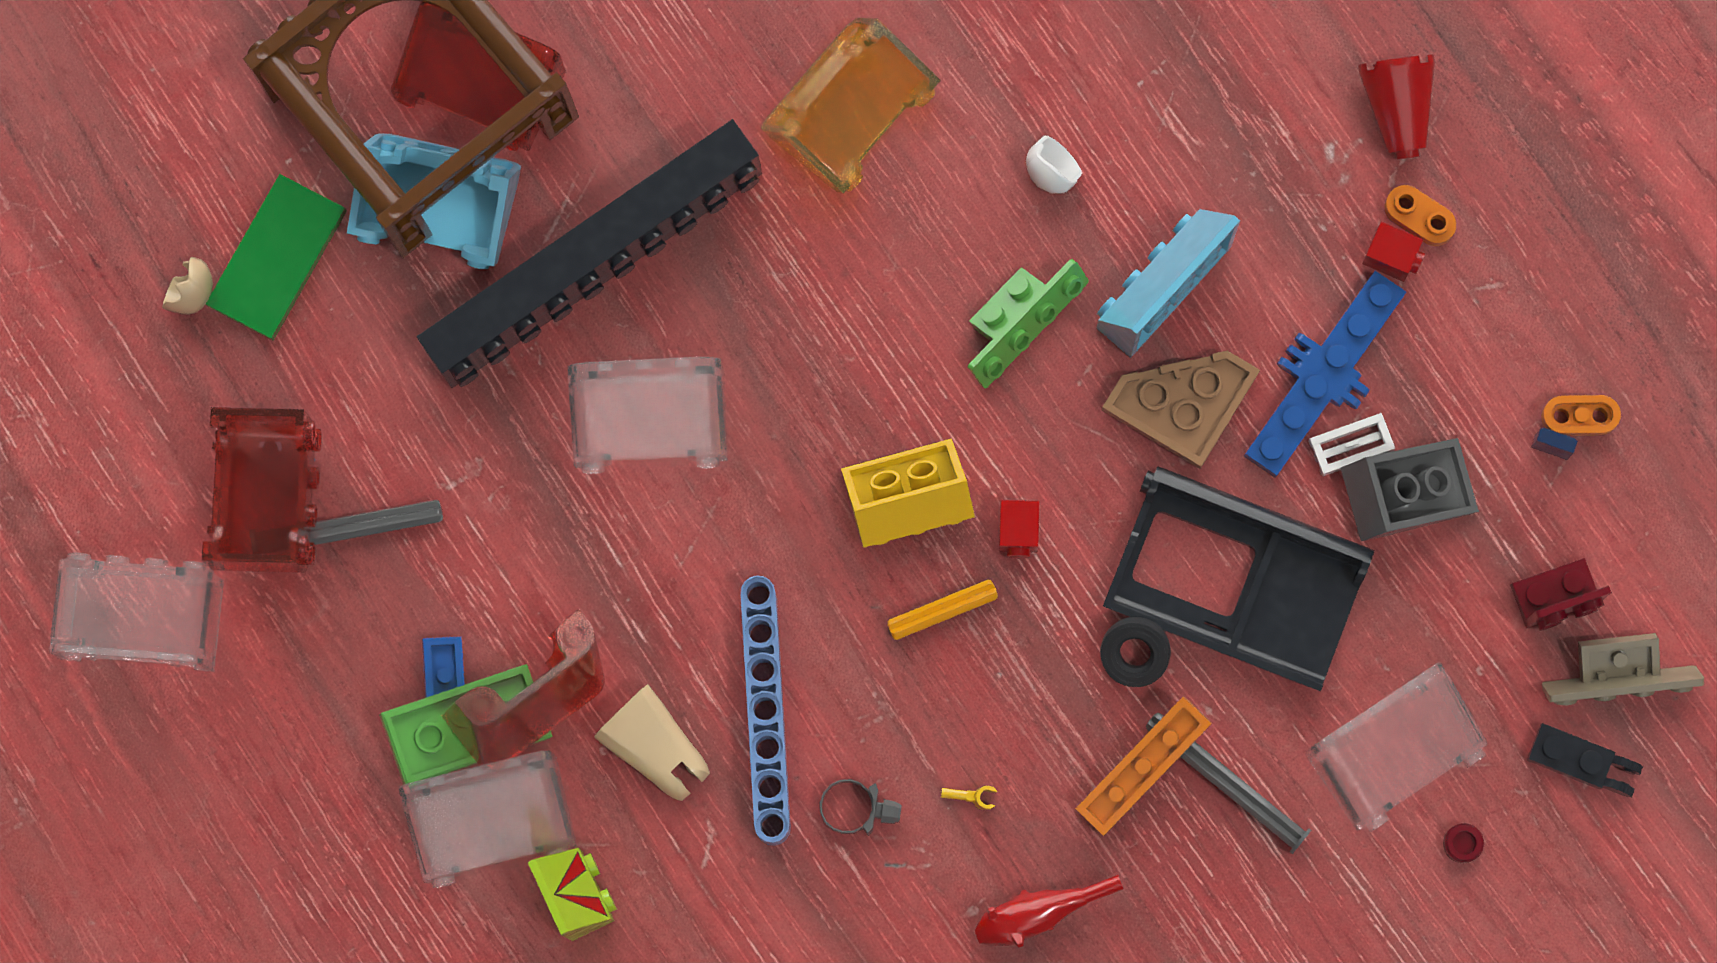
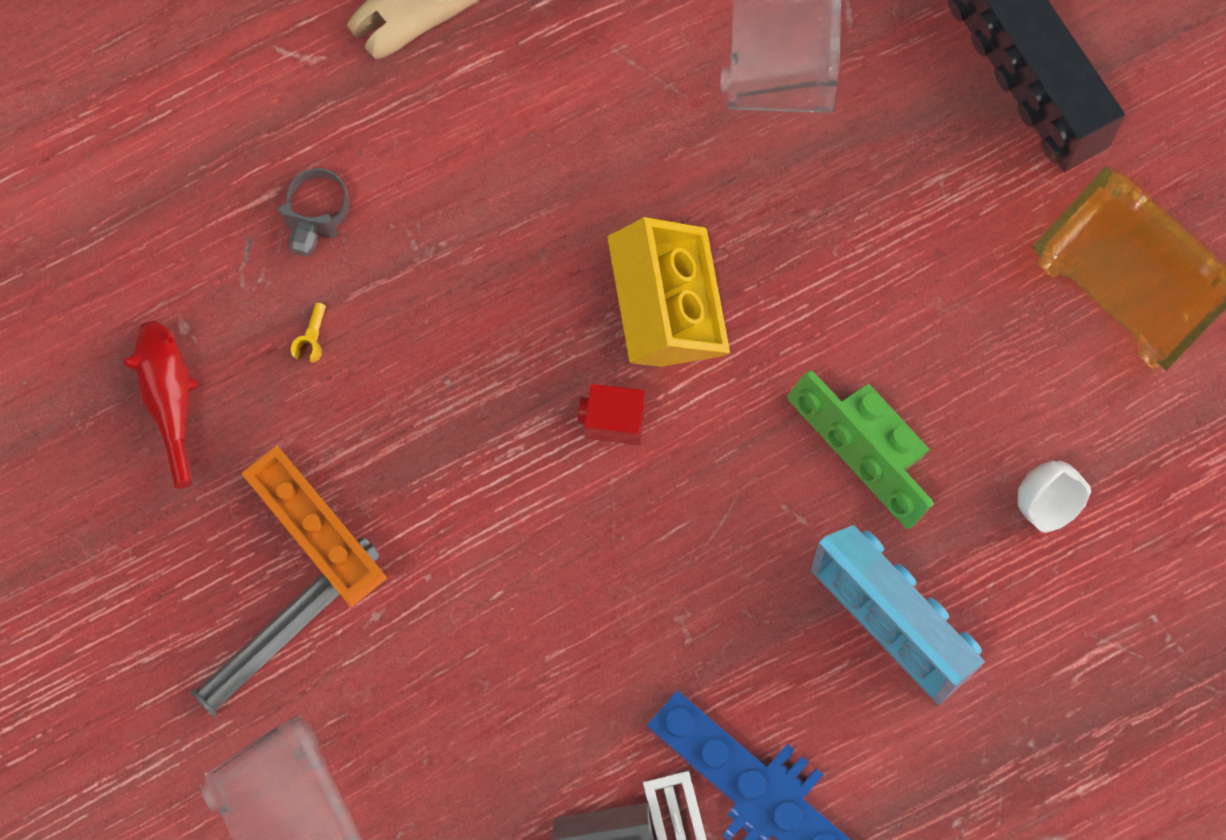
camera: 95 degrees right, 5 degrees down
(765, 691) = (418, 106): medium blue beam -> none
(942, 609) = (529, 323): light orange axle -> none
(1129, 674) = (469, 544): black tyre -> none
(1183, 402) = (747, 624): medium nougat plate -> none
(1292, 595) = (493, 726): black piece -> none

